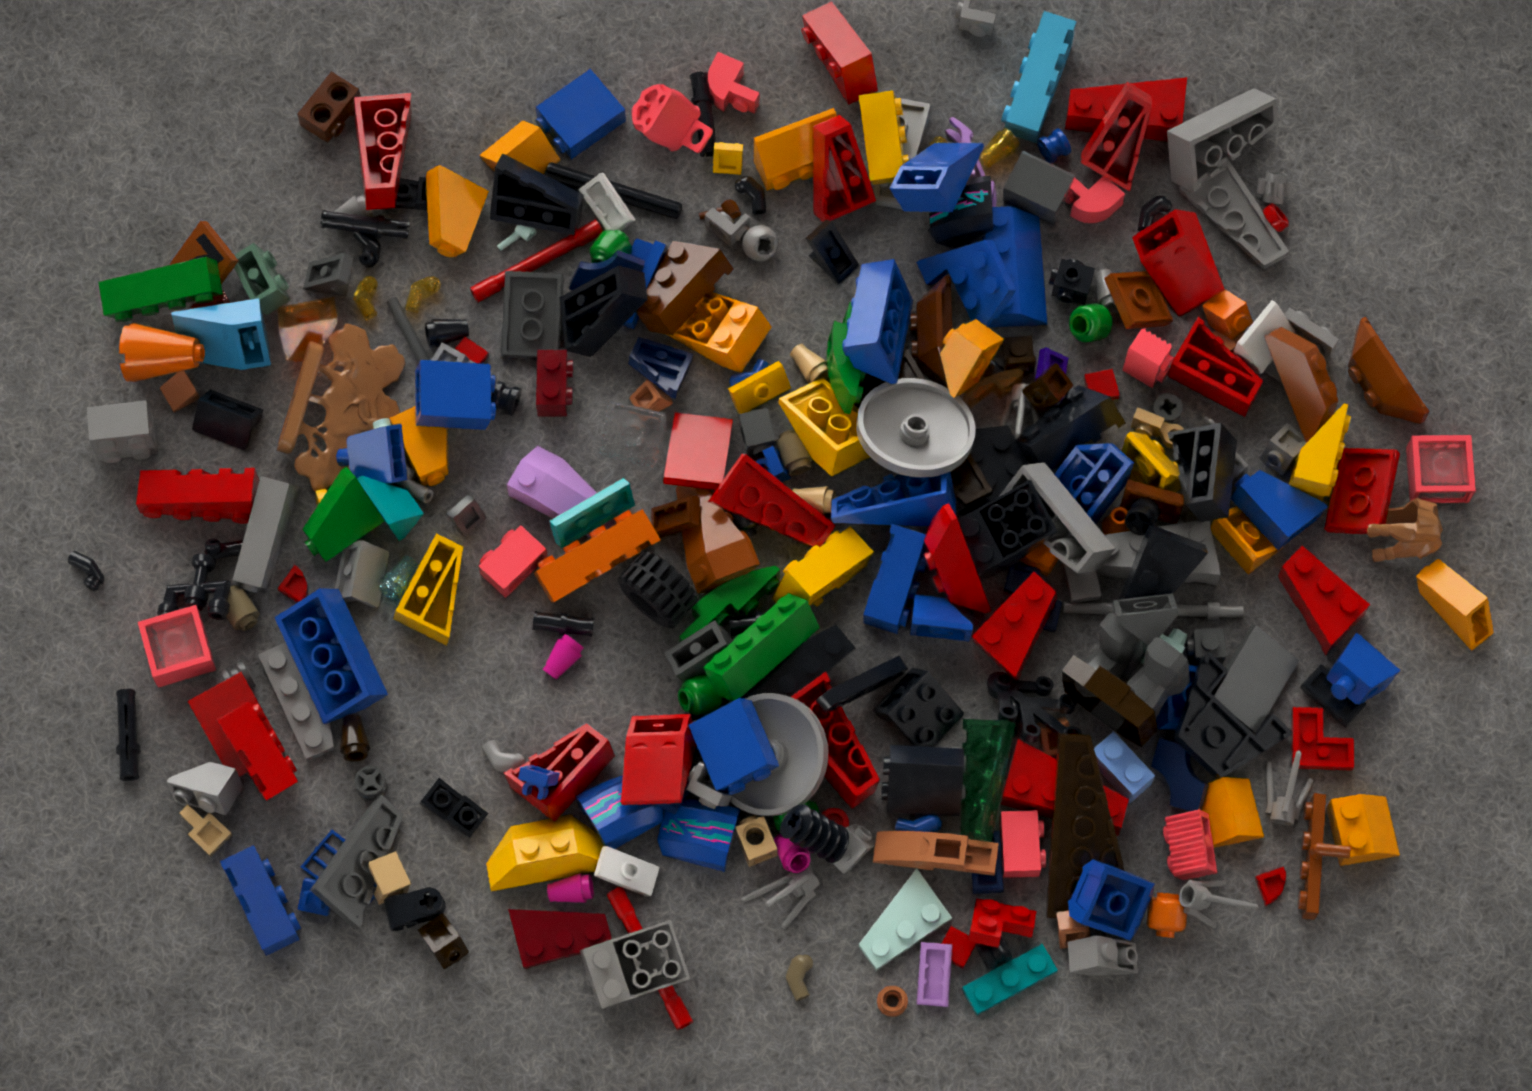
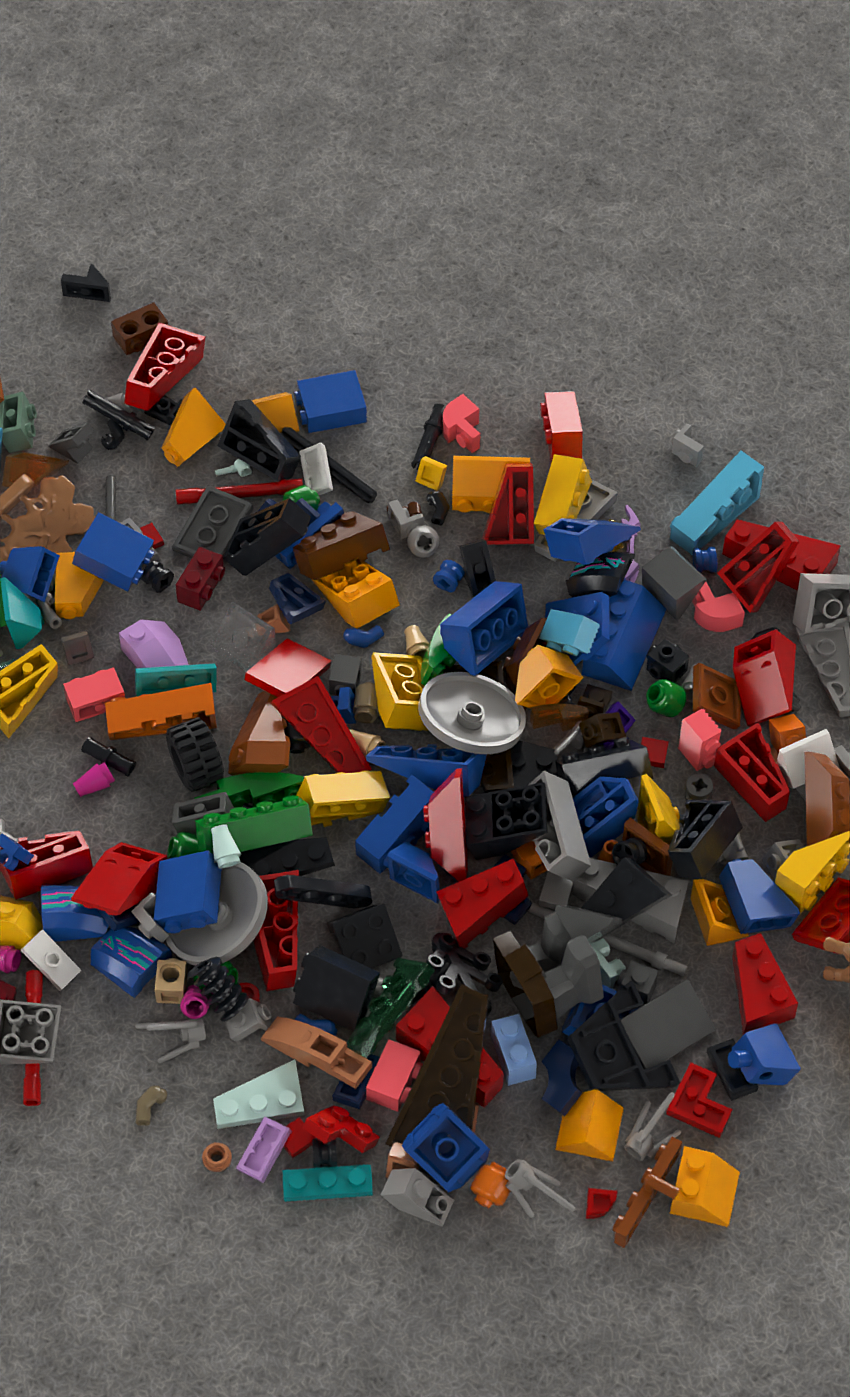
camera: 25 degrees right, 15 degrees down
(250, 76) = (90, 287): none -> black slope
(363, 296) = (90, 467): clear yellow arm -> none
(420, 290) = (136, 478): clear yellow arm -> none
(445, 331) = (139, 512): black cone -> none
(669, 118) = (398, 426): coral piece -> none
(676, 516) = (241, 710): reddish brown plate -> none
(753, 687) = (224, 847): none -> light aqua cone
(759, 388) = (365, 643): yellow plate -> none
(805, 272) = (448, 576): none -> blue wheel
(972, 298) = (569, 631): none -> medium azure brick
(999, 147) = (656, 545): clear yellow cone -> none
(1153, 425) = (677, 792): tan plate -> none
(1190, 845) = (541, 1135): coral brick -> none

